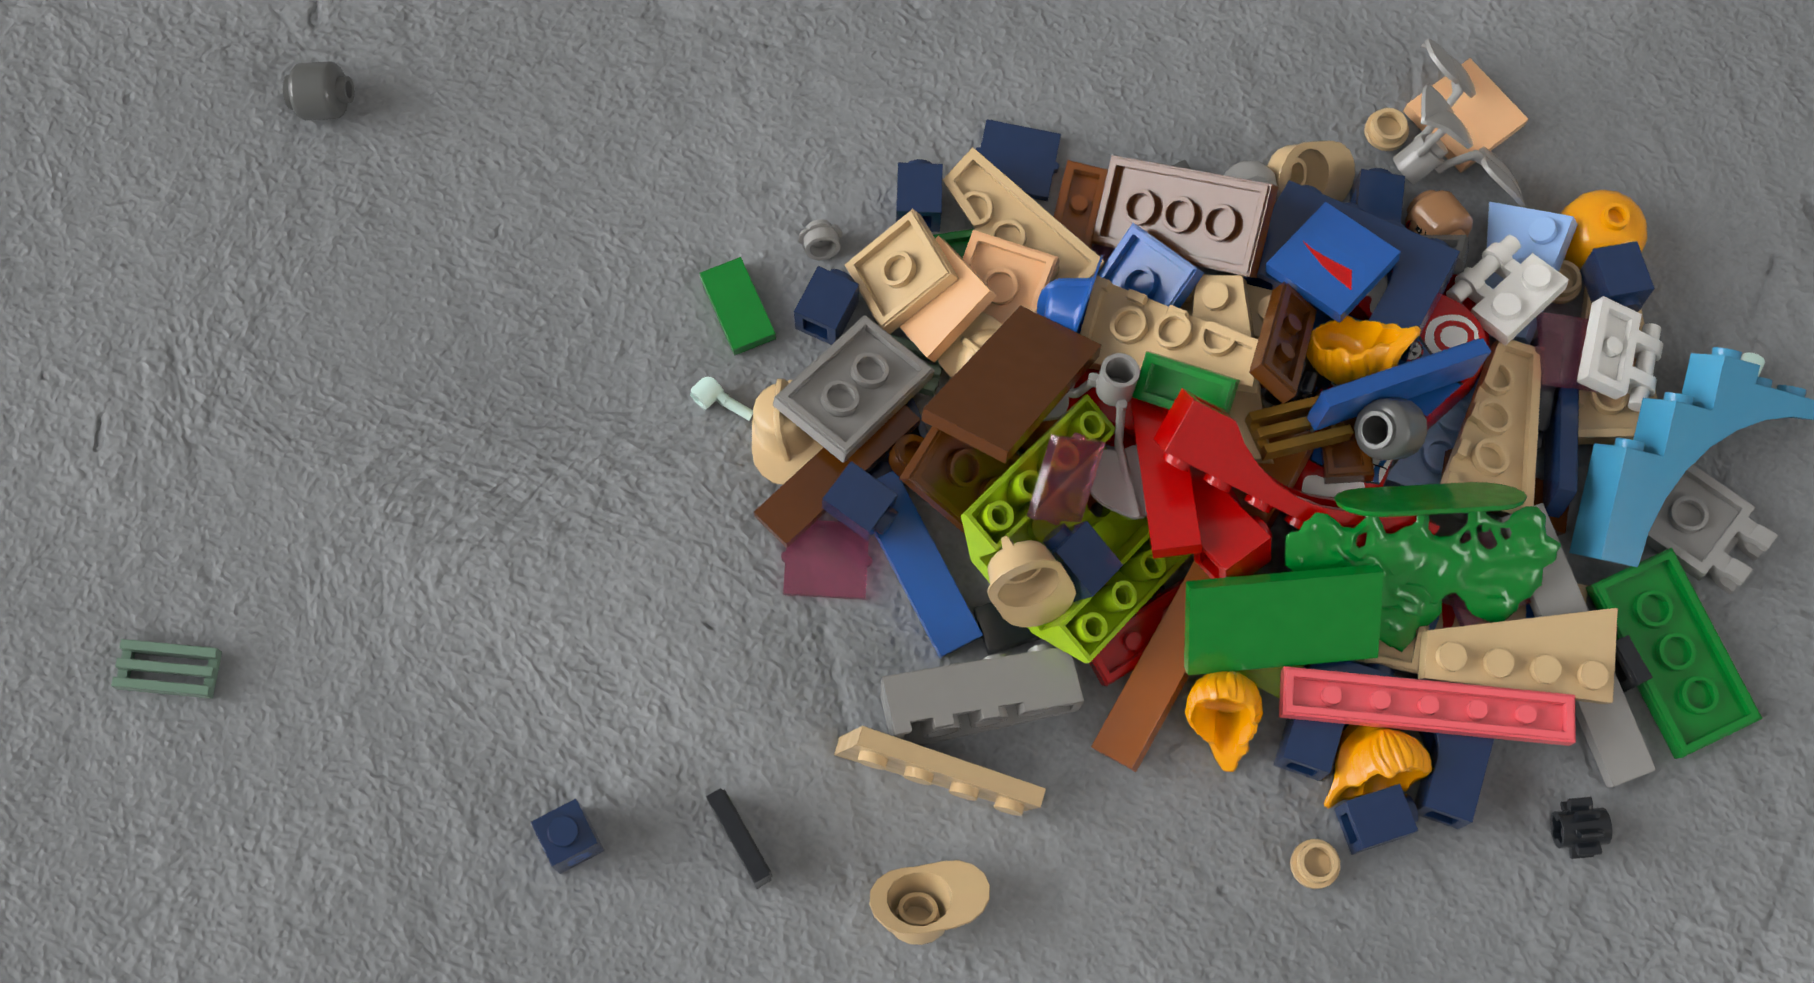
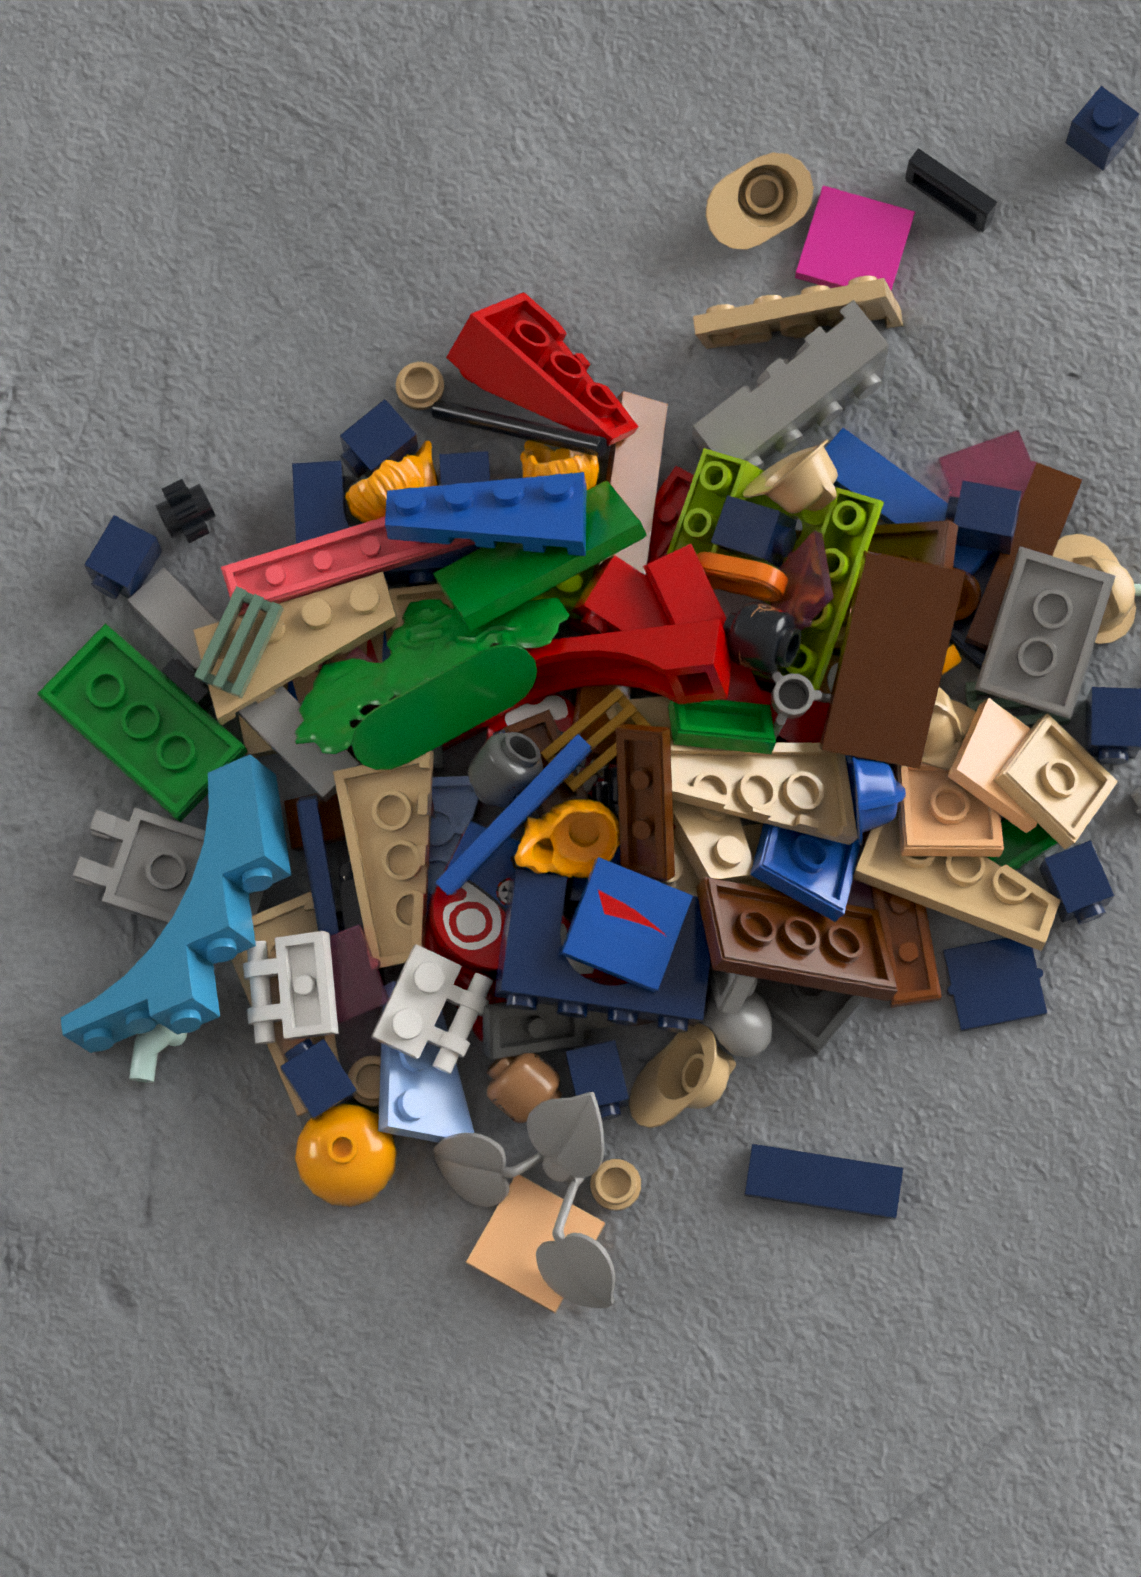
camera: 165 degrees right, 5 degrees up
(850, 829) = (853, 239): none -> dark pink tile
(1112, 518) = (743, 576): none -> orange tile
(1124, 437) = (762, 637): none -> black head
(1205, 823) = (522, 357): none -> red wedge
(1219, 69) = (823, 1181): none -> dark blue tile
(1246, 766) = (519, 428): none -> black bar
(1301, 662) = (517, 510): none -> blue wing
(1607, 634) = (221, 634): none -> sand green tile
(1652, 808) = (122, 559): none -> dark blue brick

